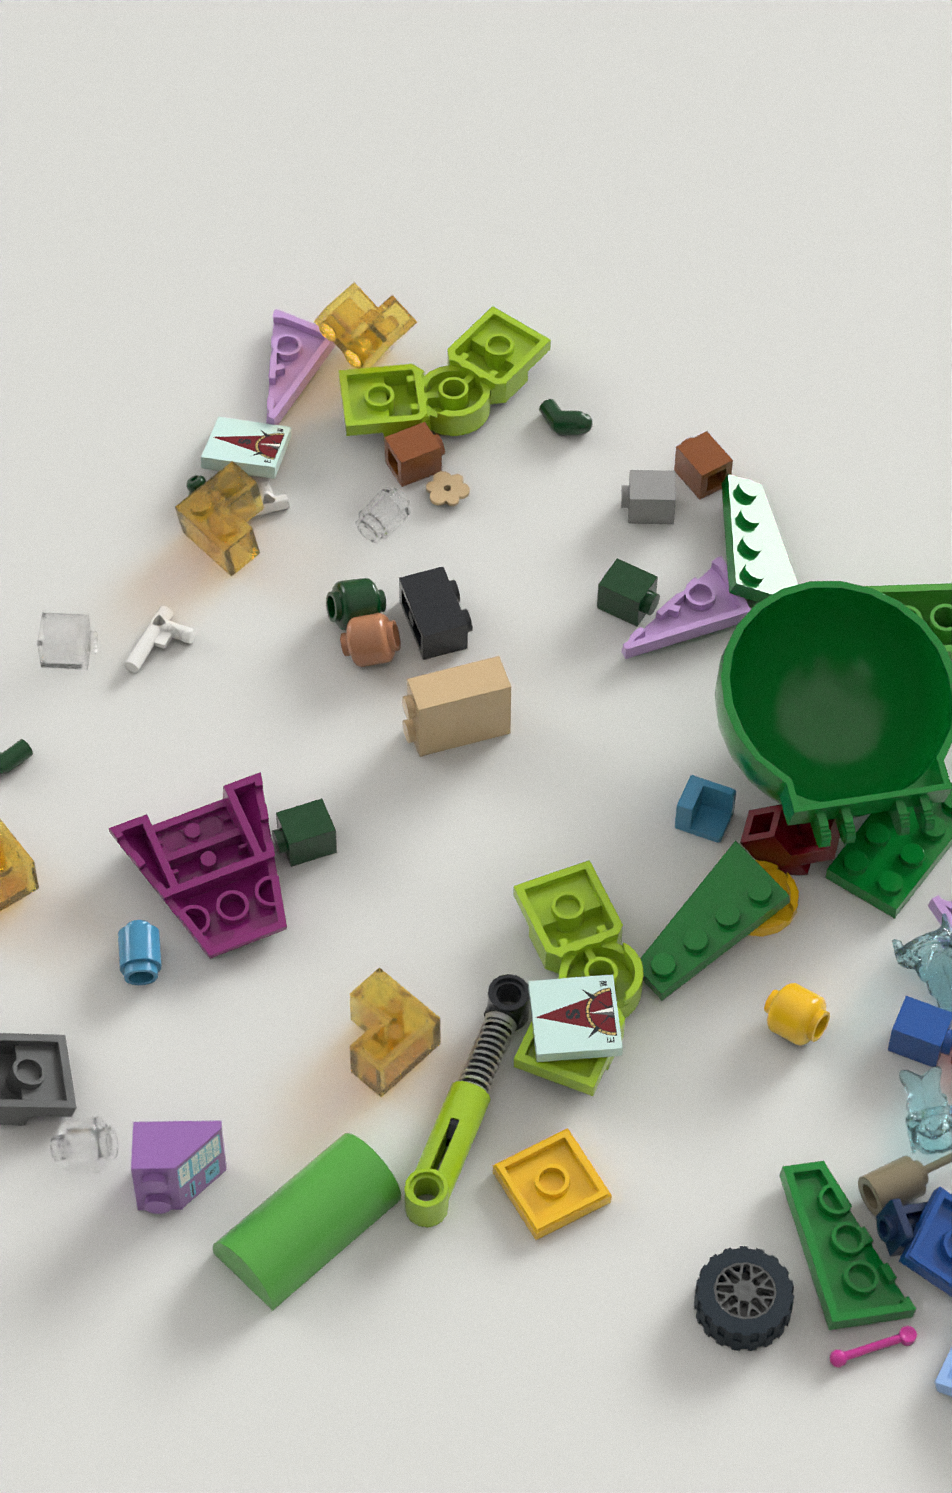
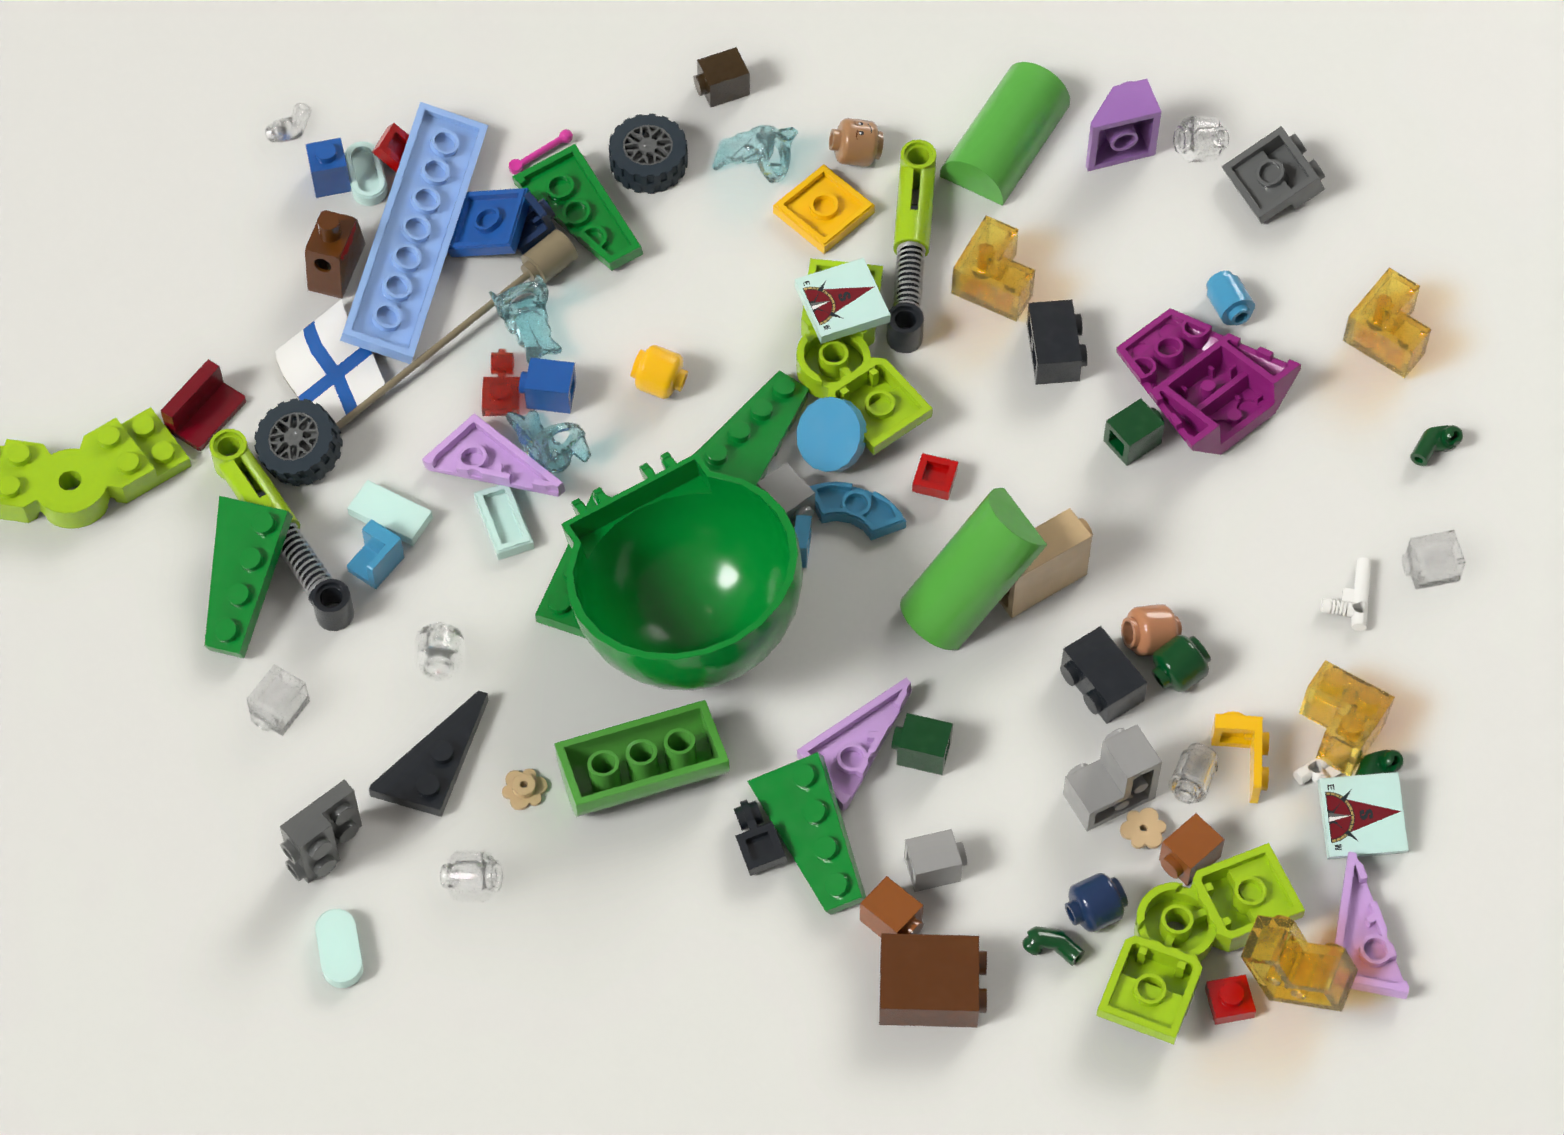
camera: 165 degrees right, 5 degrees up
(323, 535) = (1244, 731): none -> yellow bracket
(350, 945) = (1055, 341): none -> black brick
(426, 349) = (1230, 999): none -> red plate
(461, 515) = (1117, 781): none -> light grey brick
(489, 1242) = (856, 142): none -> medium nougat head
(516, 432) = (1096, 902): none -> dark blue head
(530, 840) = (935, 476): none -> red plate
(540, 684) = (972, 572): none -> bright green brick
(615, 1255) = (758, 147): none -> clear light blue hair
(620, 839) = (857, 506): none -> dark azure tile
(627, 1376) = (722, 77): none -> dark brown brick
(629, 890) = (831, 434): none -> dark azure tile
(682, 404) = (931, 980): none -> reddish brown brick
(692, 849) = (789, 492): none -> light grey brick
(809, 546) = (759, 844): none -> black plate

